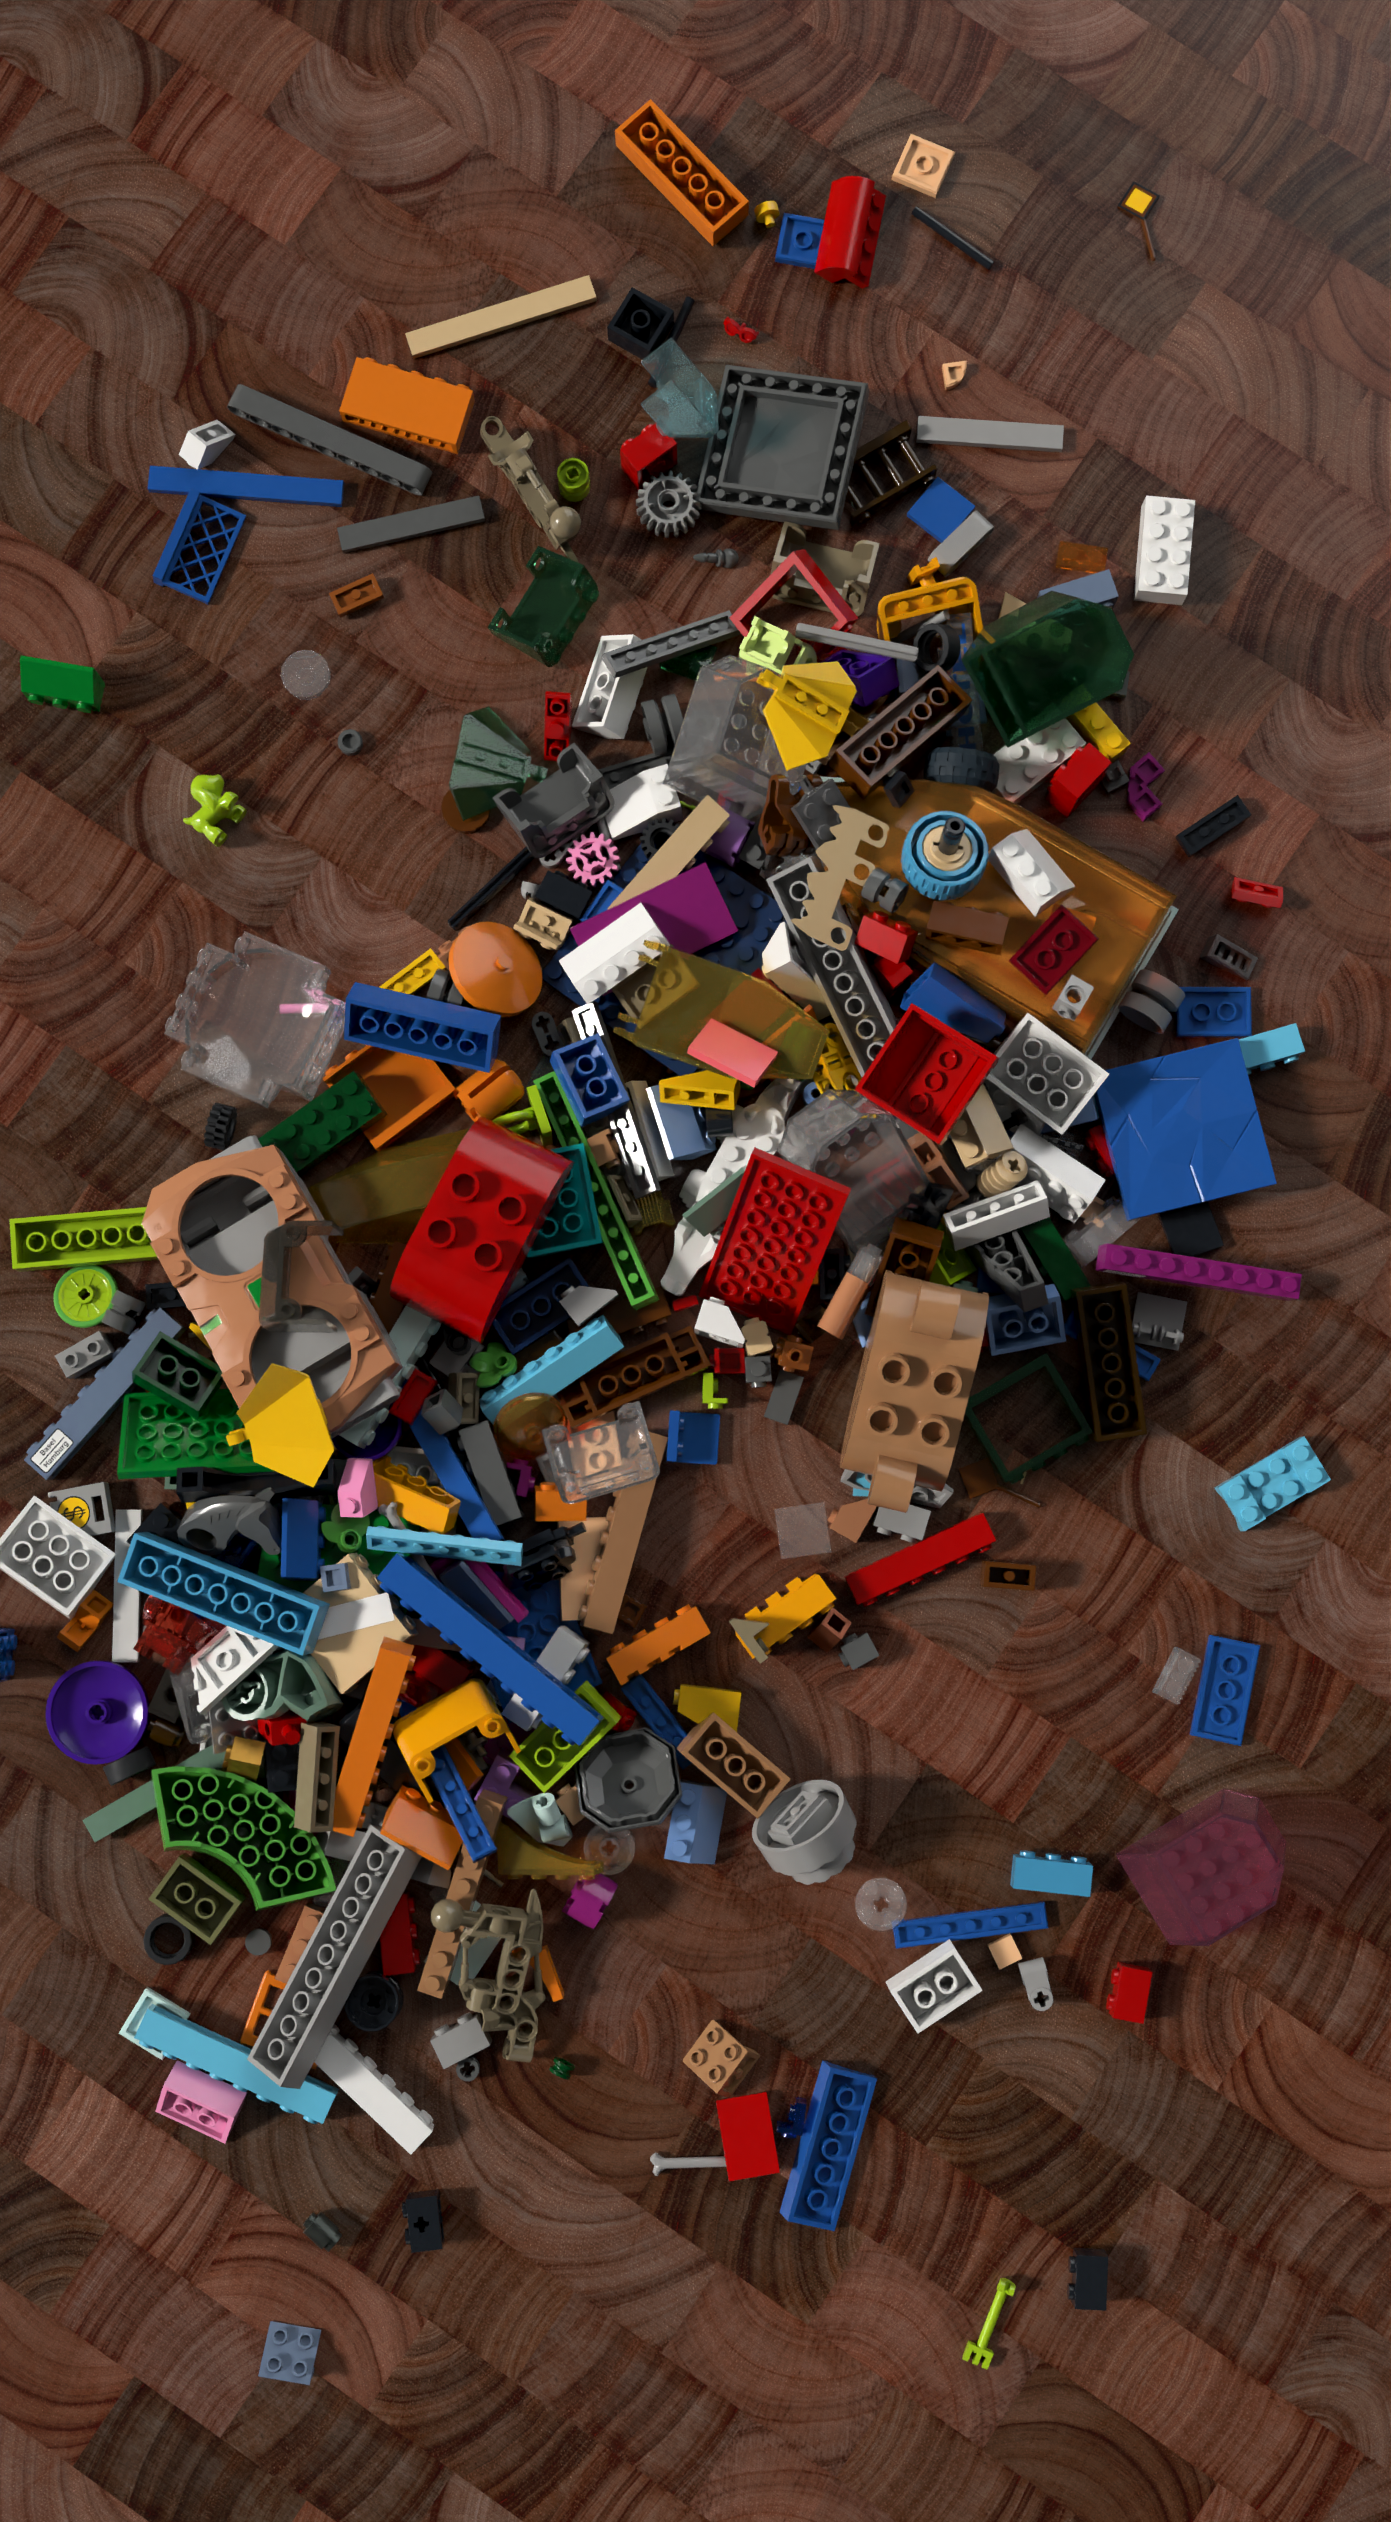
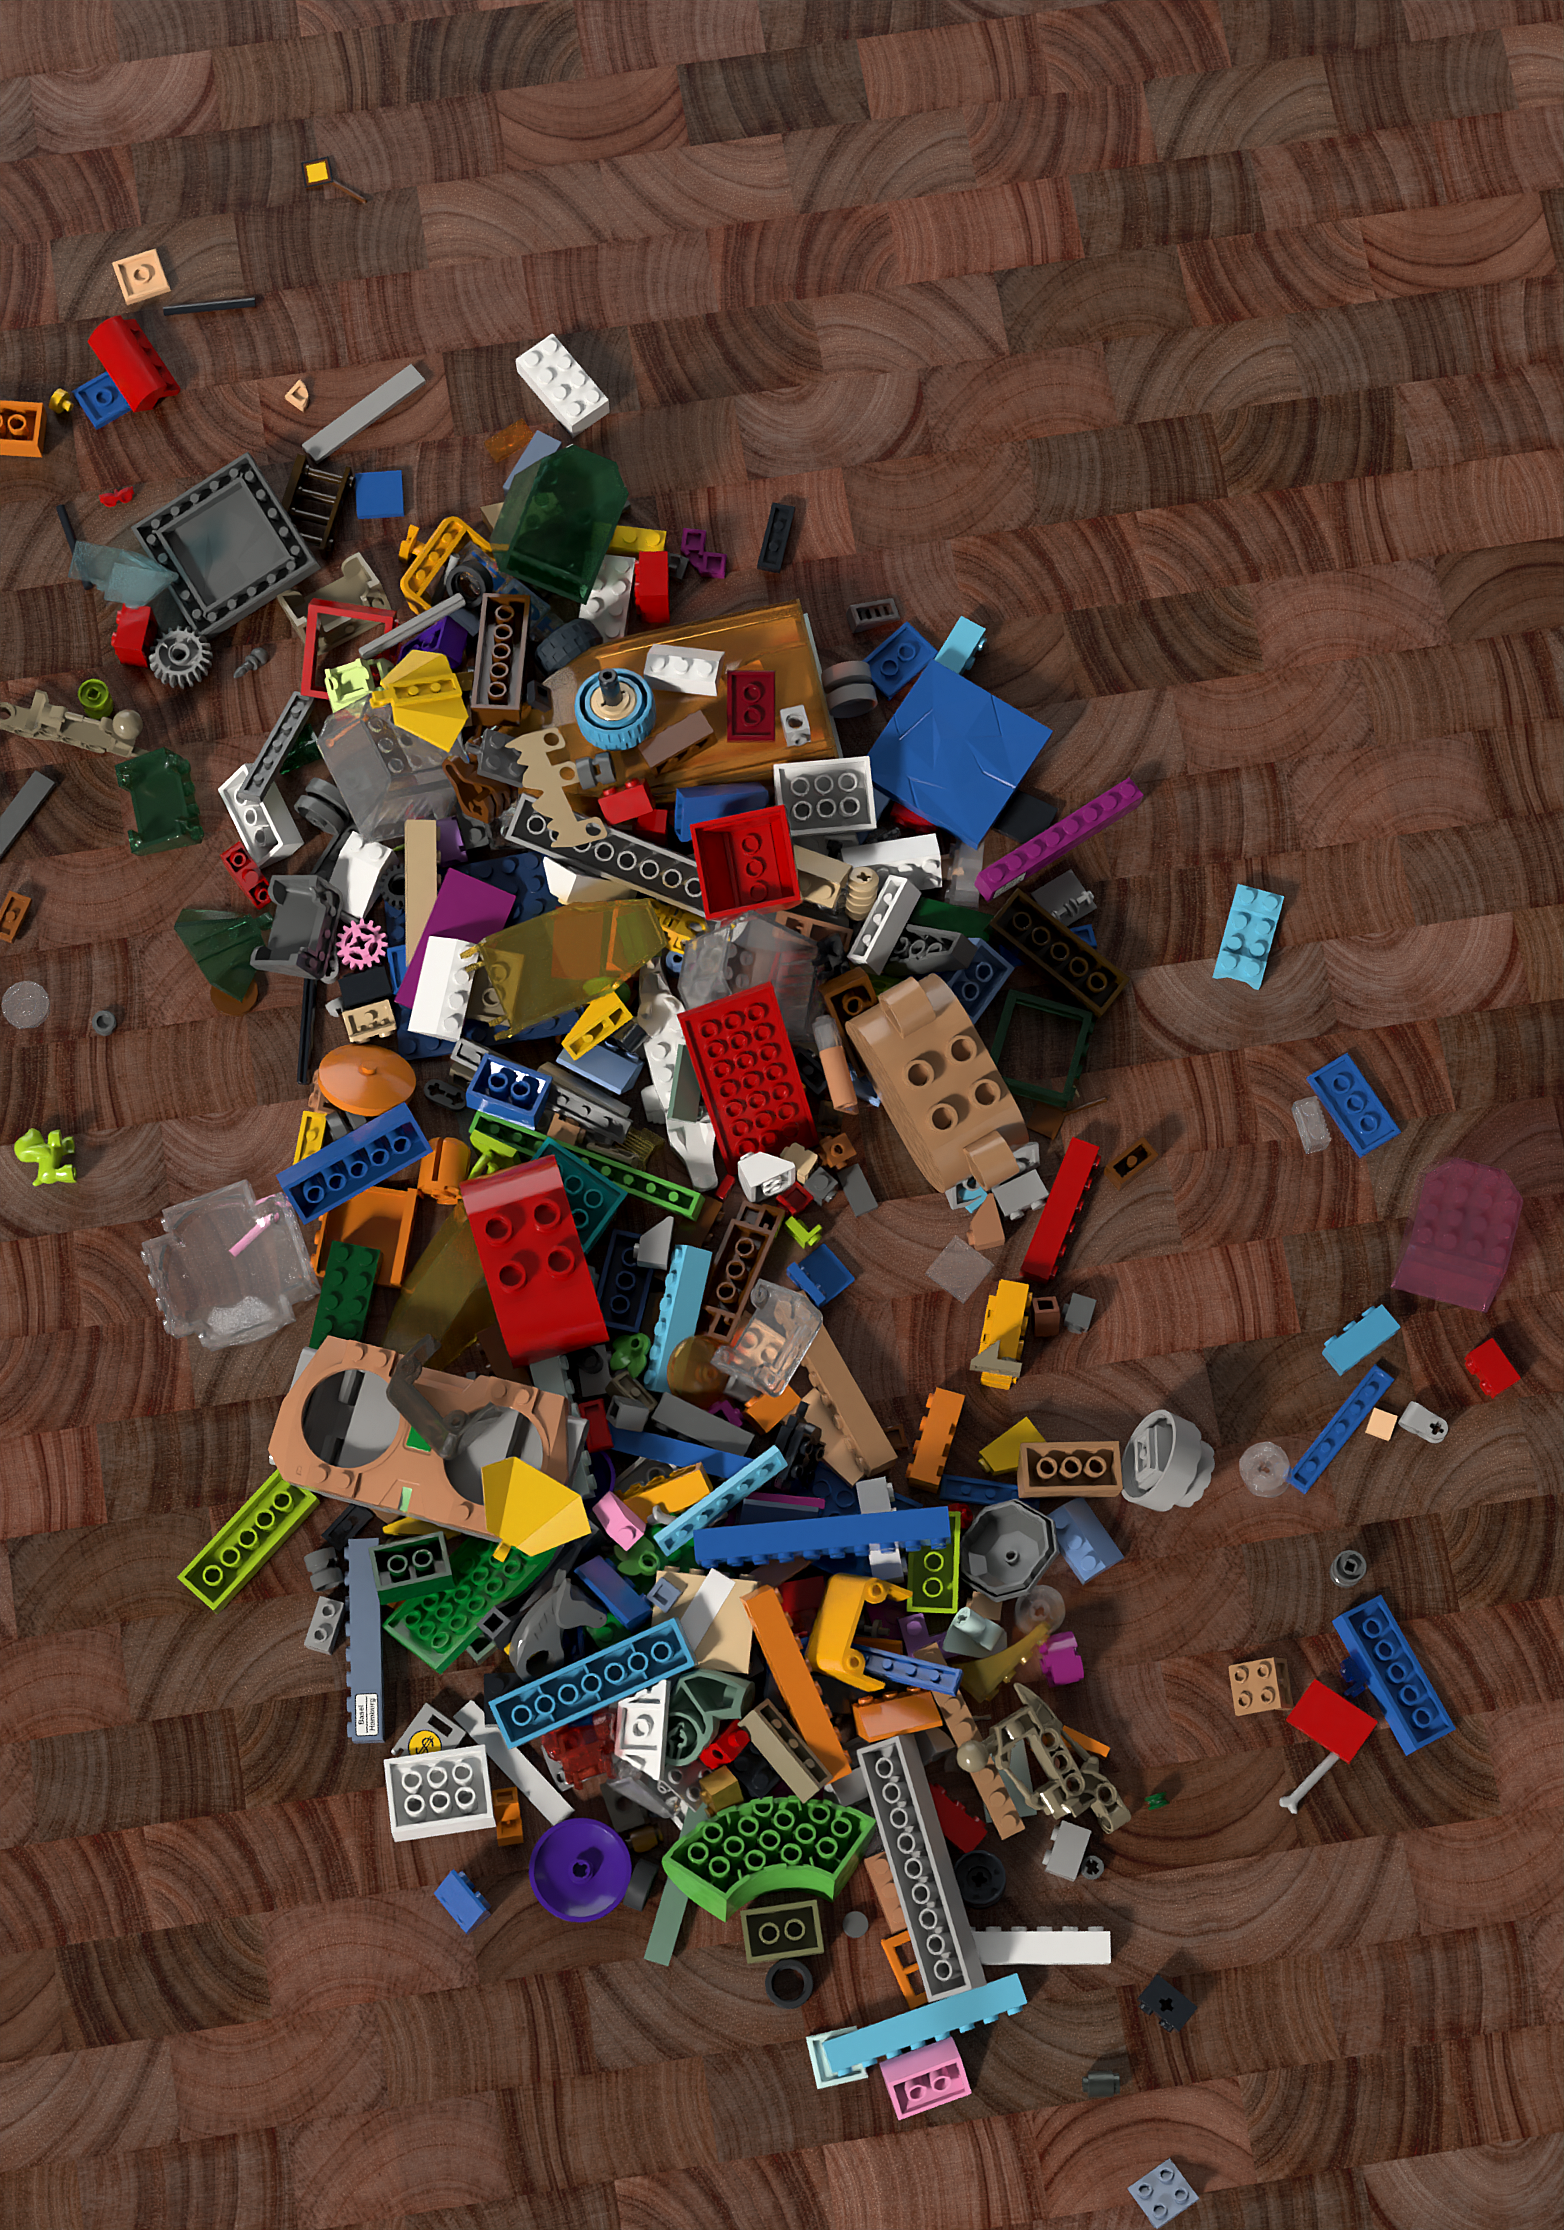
camera: 45 degrees left, 10 degrees down
(76, 1284) = (268, 1591): lime wheel -> none
(220, 1126) = (270, 1372): black tyre -> none
(640, 324) = (43, 553): black brick -> none
(732, 1052) = (595, 975): coral tile -> none
(870, 2037) = (1347, 1569): none -> dark grey wheel
(933, 1986) = (1356, 1490): white brick -> none
(962, 543) = (416, 502): light grey beam -> none
(1257, 892) = (854, 552): red plate -> none

